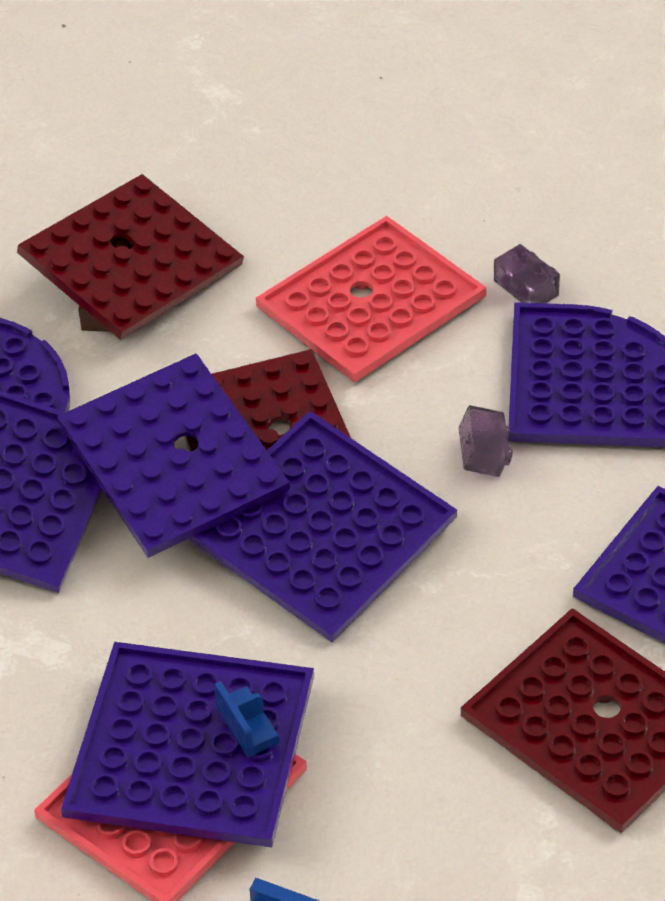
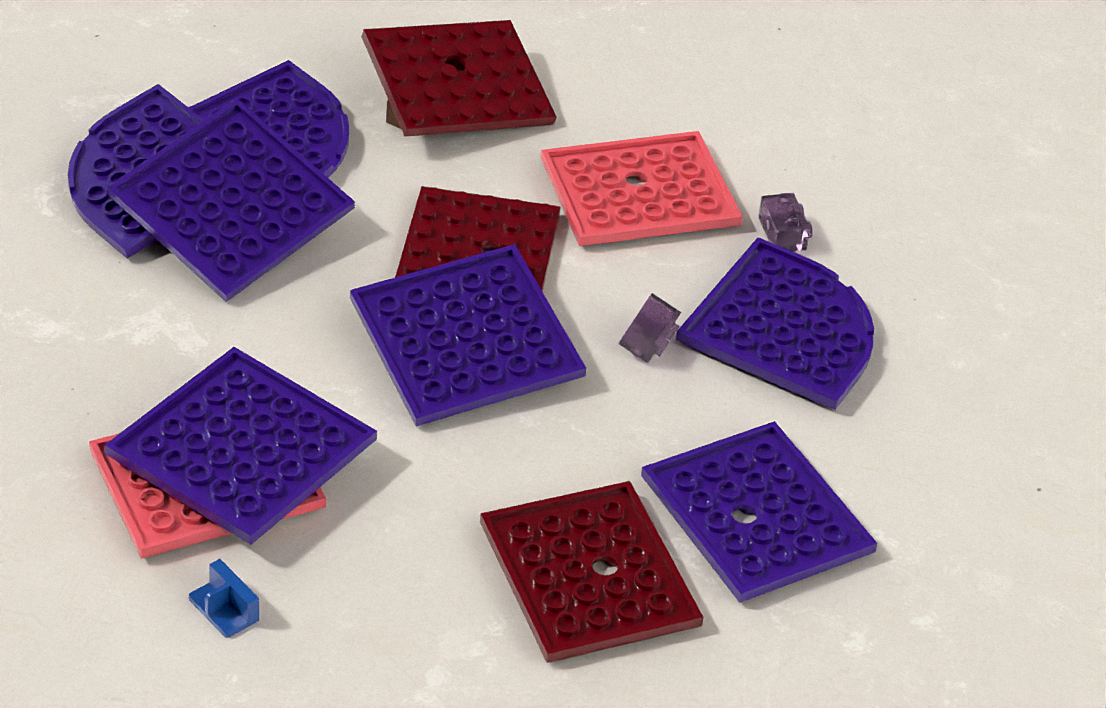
camera: 20 degrees right, 5 degrees down
(163, 489) = (351, 249): dark purple plate -> none
(246, 719) = (292, 442): blue panel -> none

